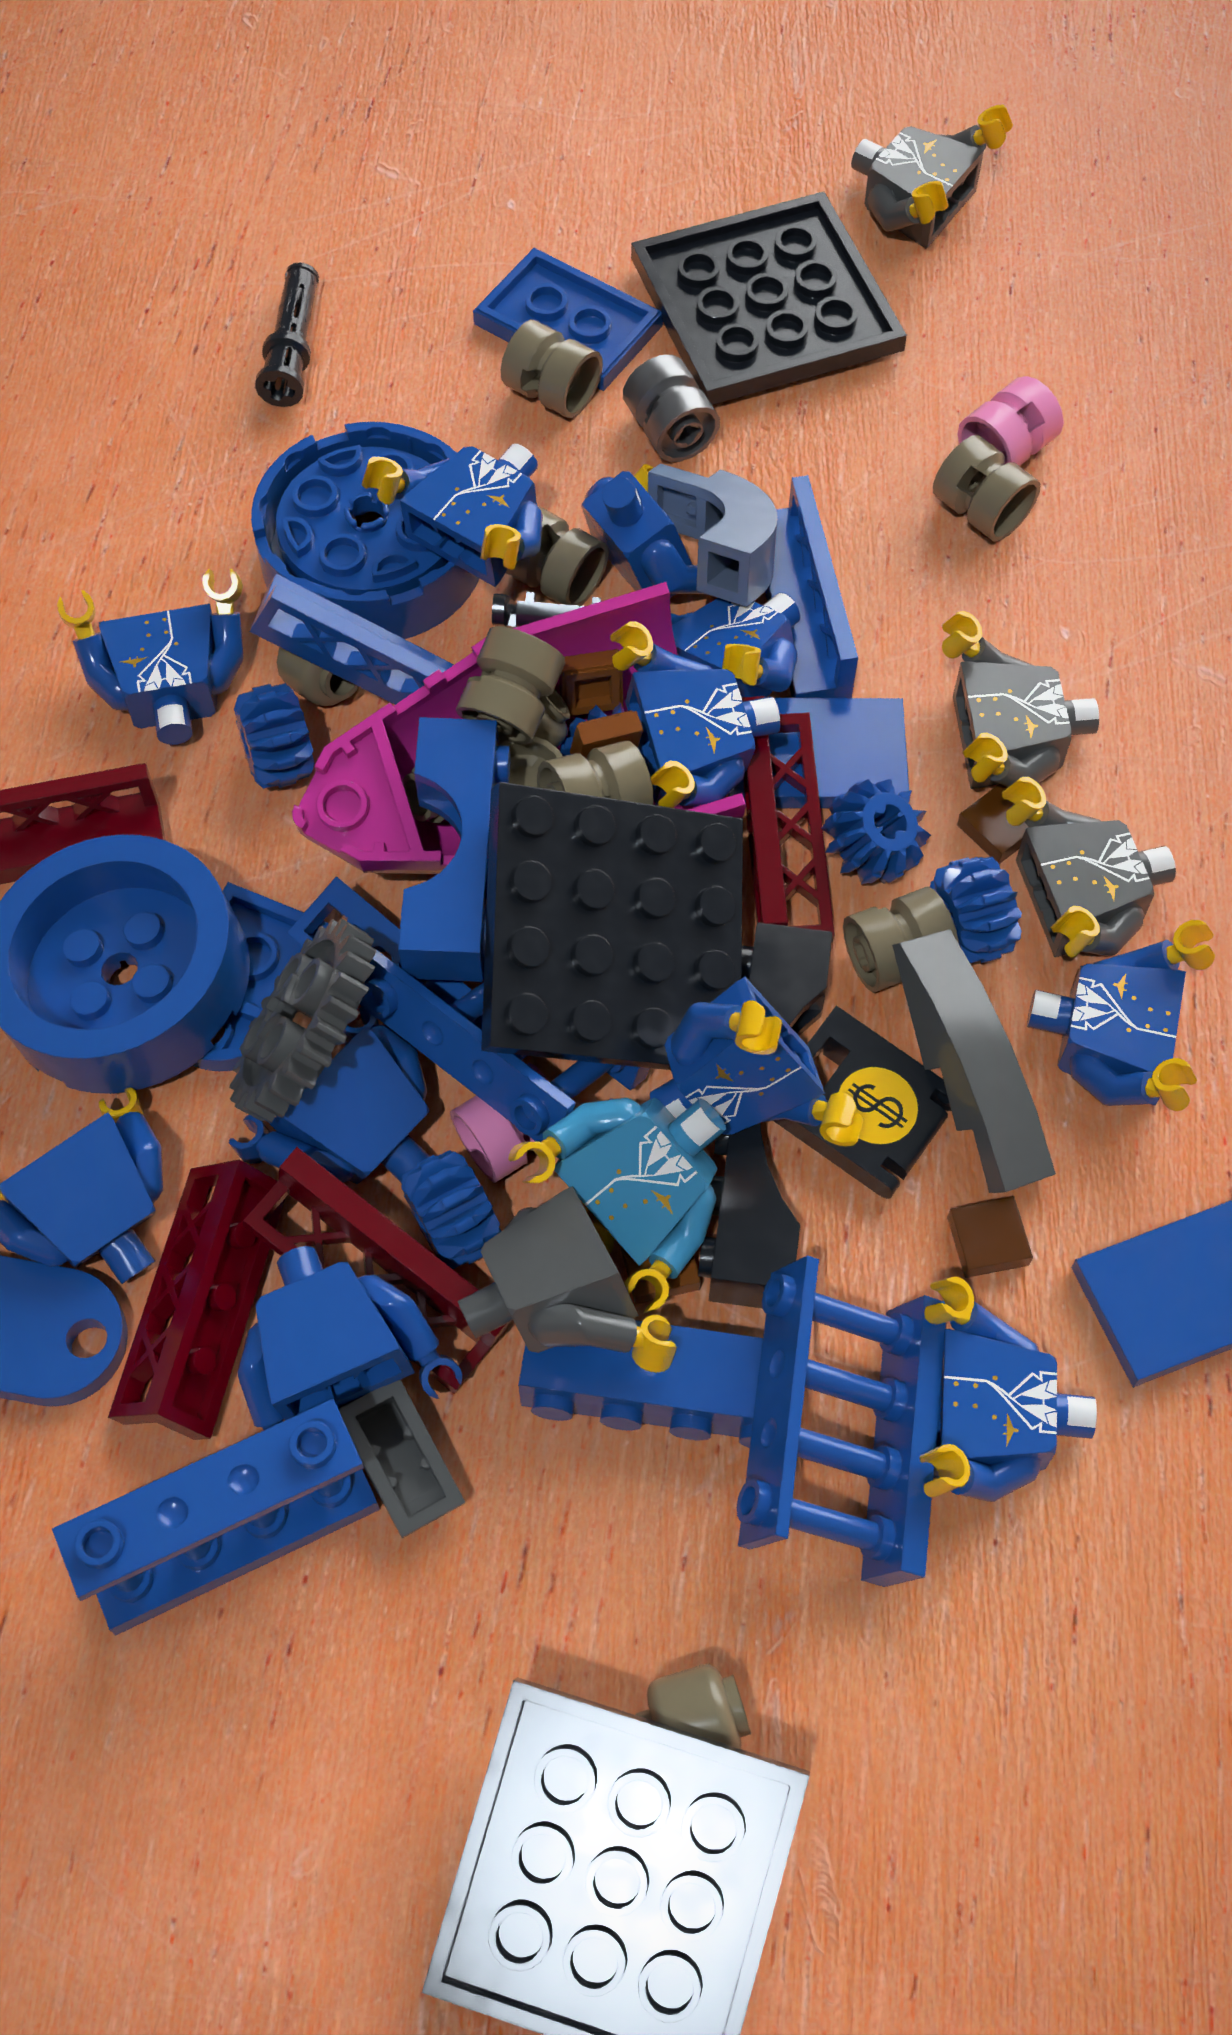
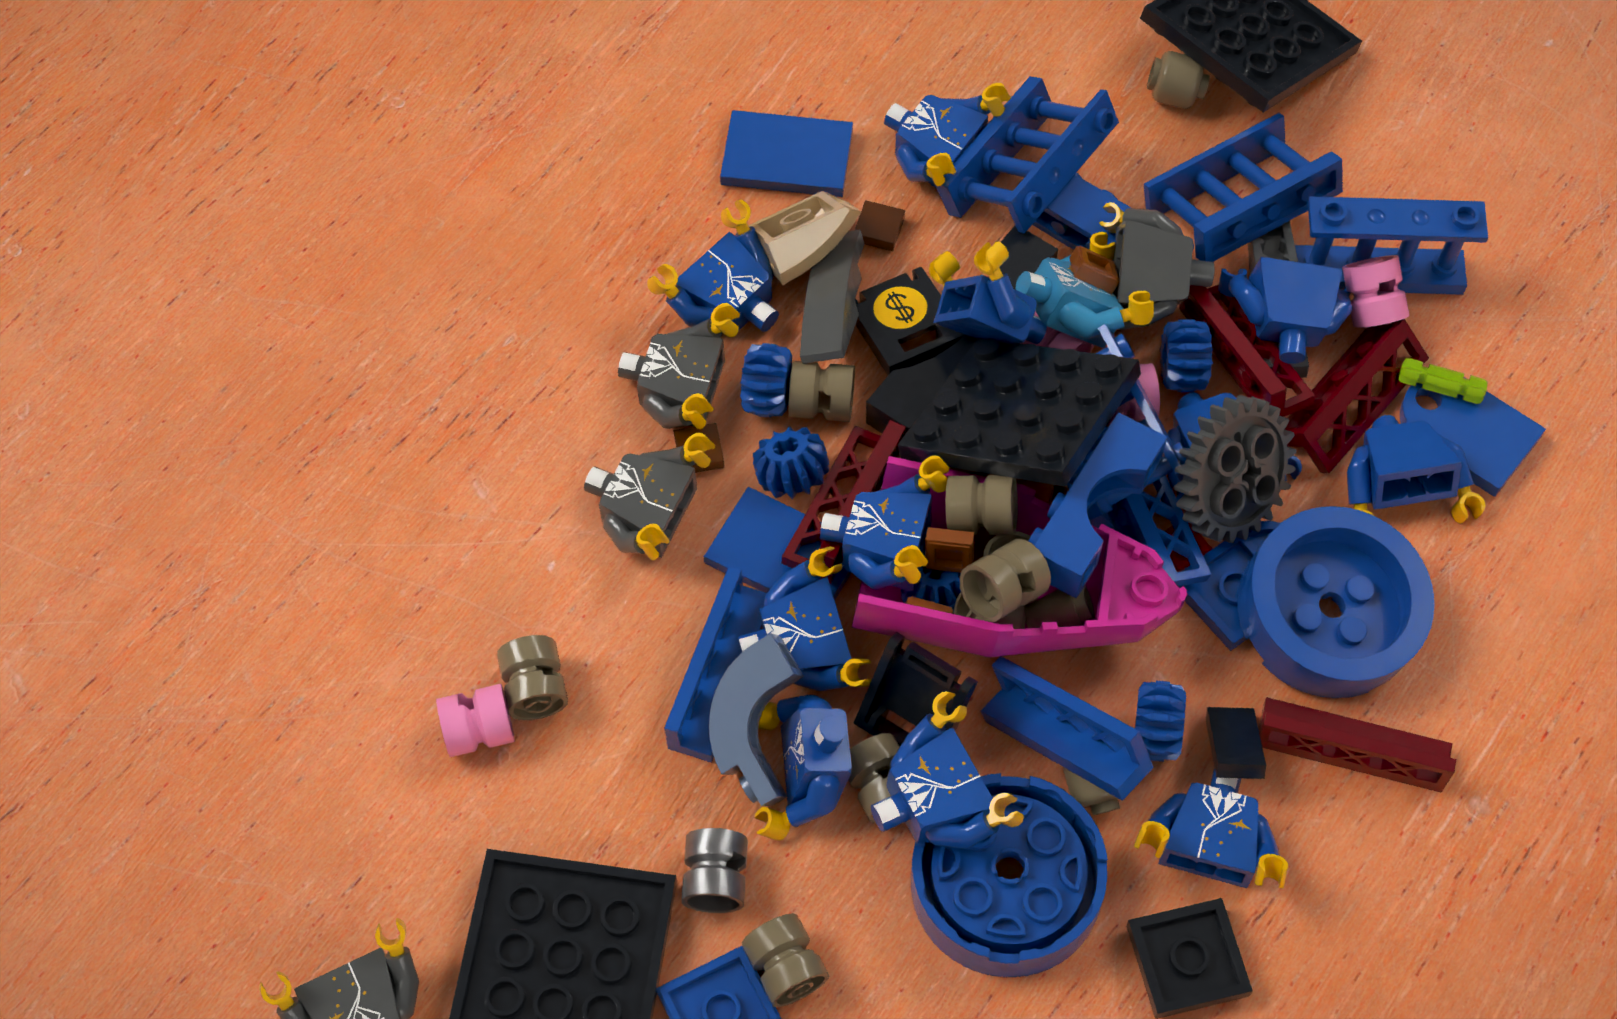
camera: 150 degrees left, 0 degrees up
(70, 1359) = (1443, 380): none -> lime axle
(144, 549) = (1189, 958): none -> black plate
(177, 758) = (1235, 743): none -> black tile
(201, 1420) = (1376, 291): none -> bright pink wheel
(423, 1536) = (1257, 213): none -> blue fence
(634, 1224) = (1094, 269): none -> dark orange tile
(1076, 1123) = (804, 233): none -> tan slope

